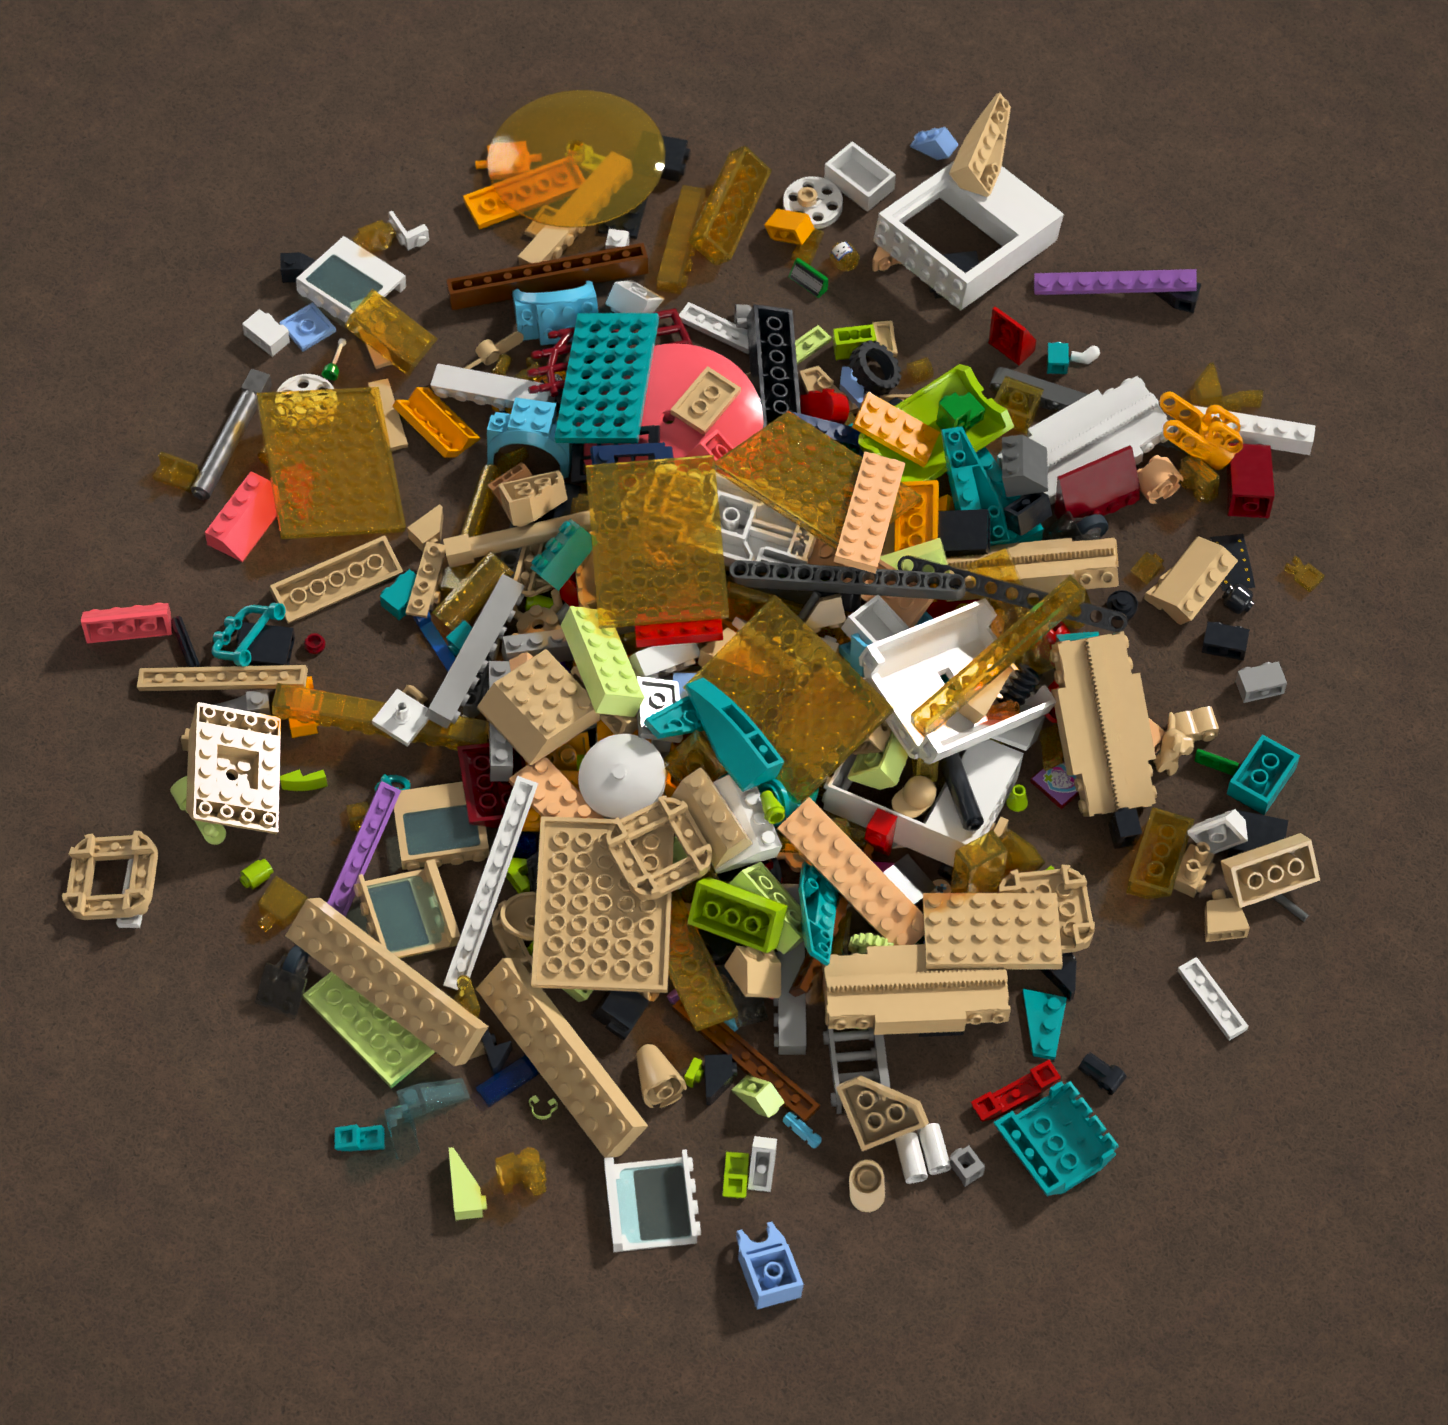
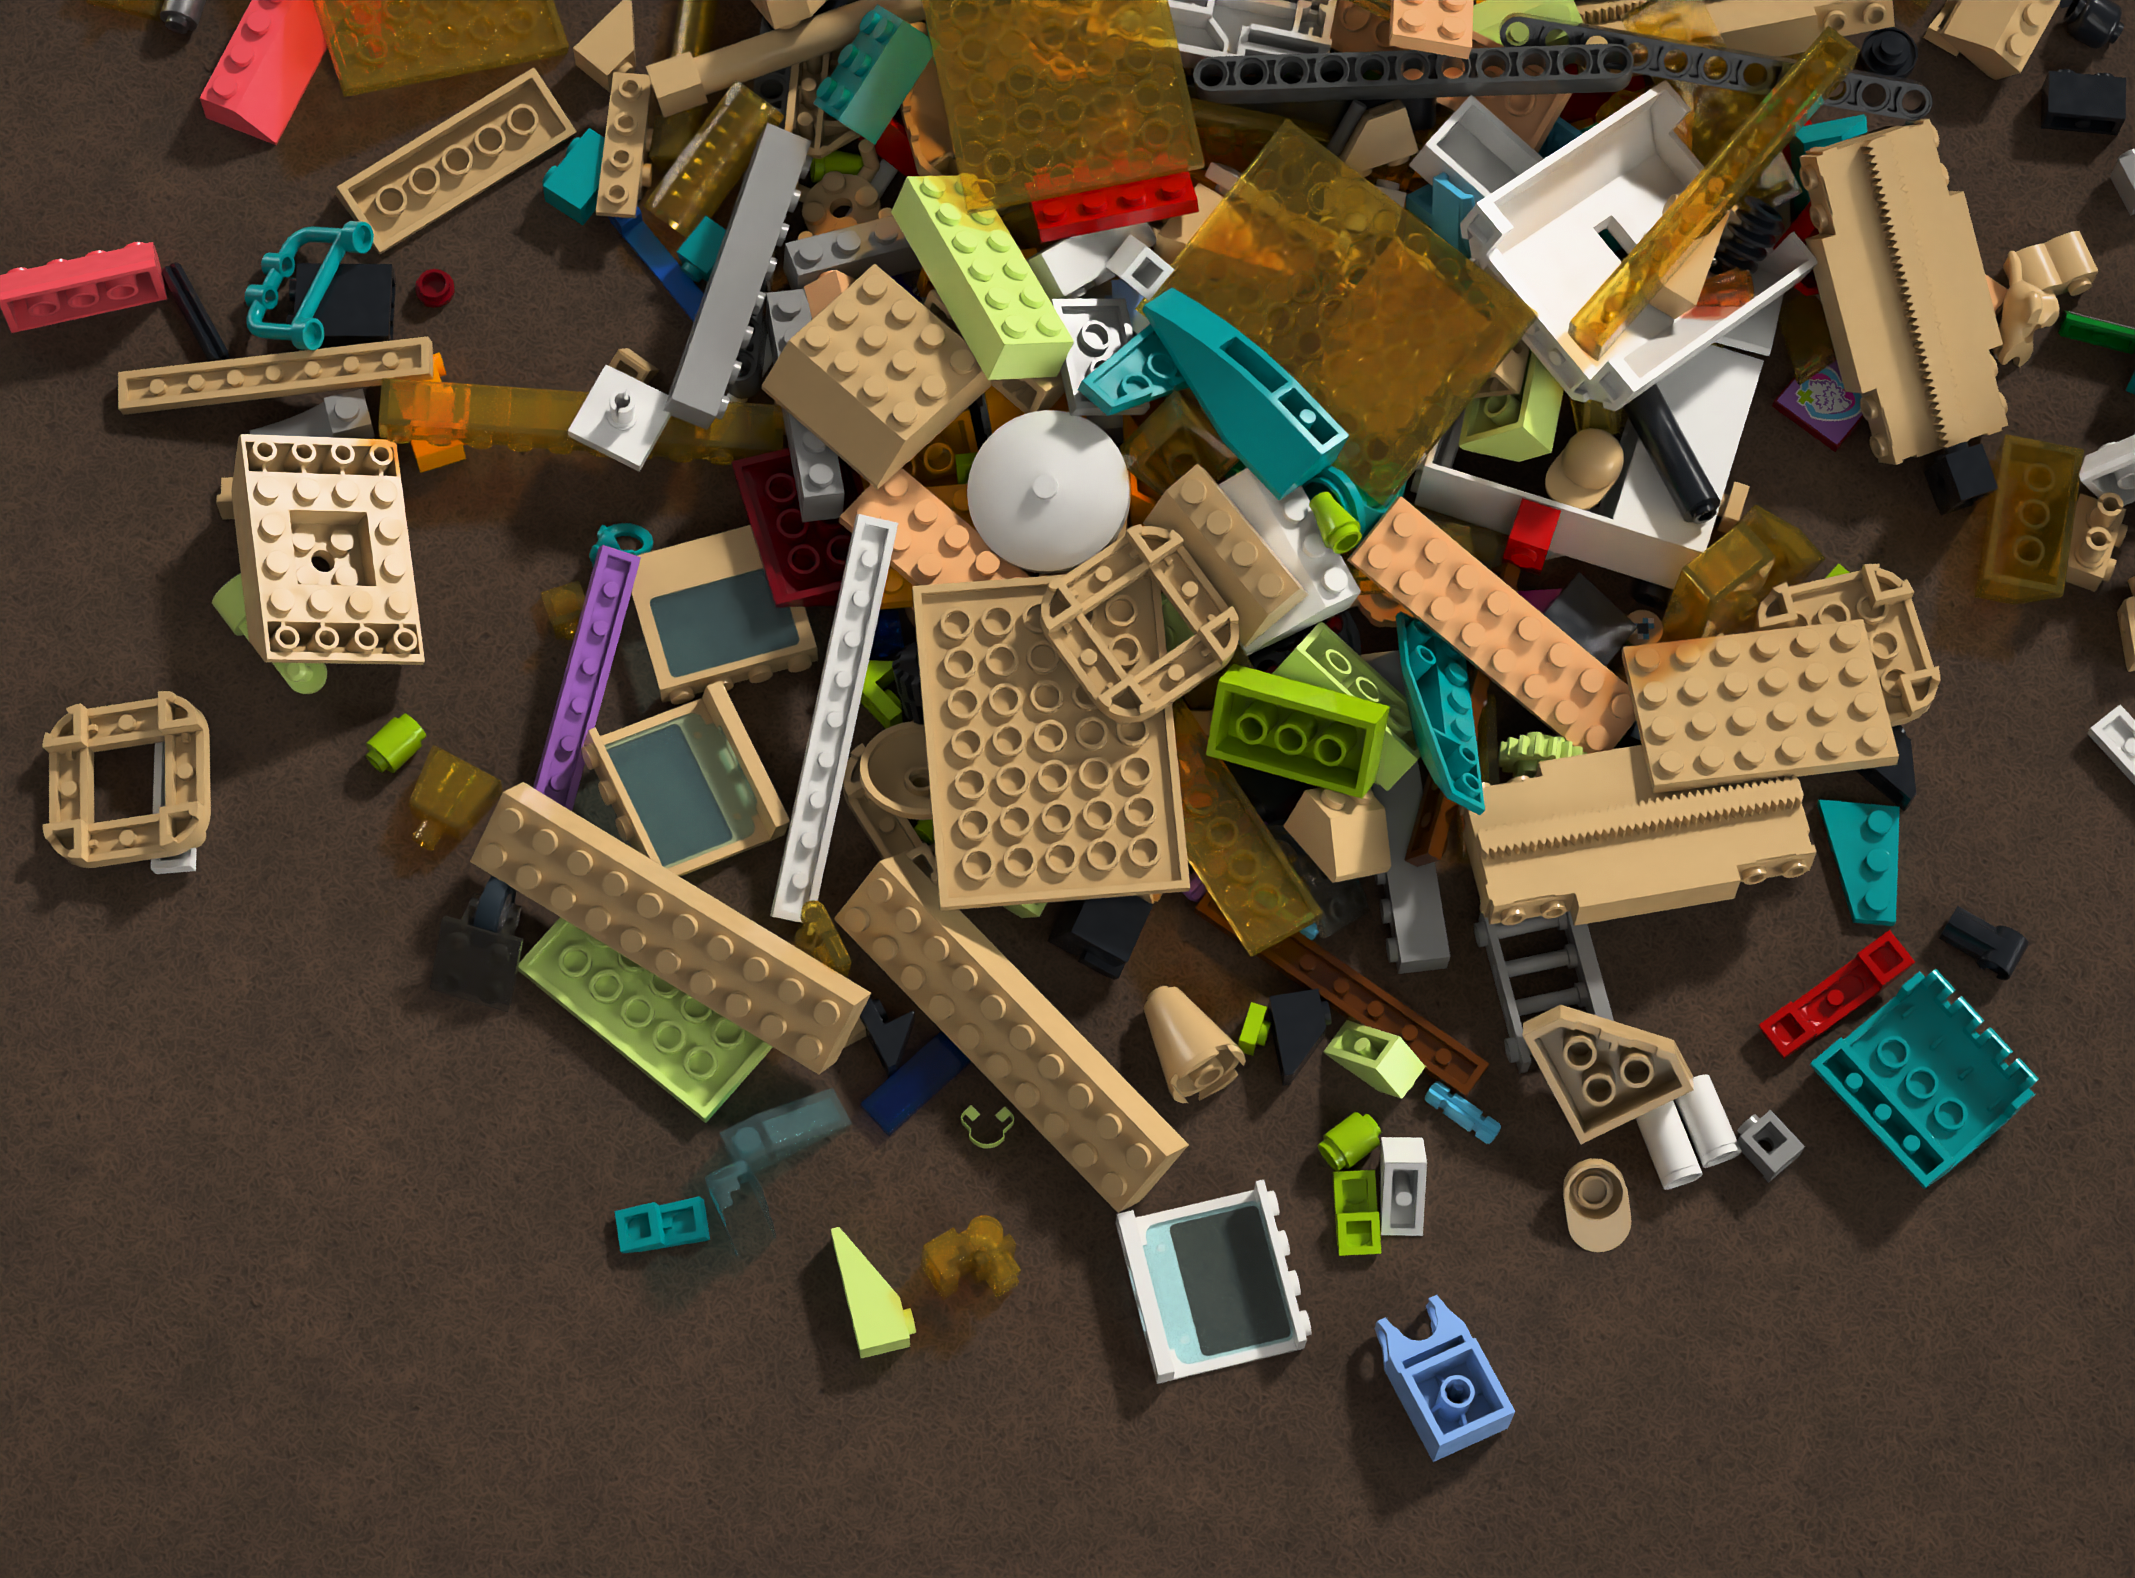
camera: 10 degrees left, 10 degrees up
(296, 782) = (442, 558): lime slope -> none
(687, 665) = (1139, 267): none -> white brick
(737, 1137) = (1350, 1141): none -> lime brick
(1017, 799) = (1757, 443): lime cone -> none

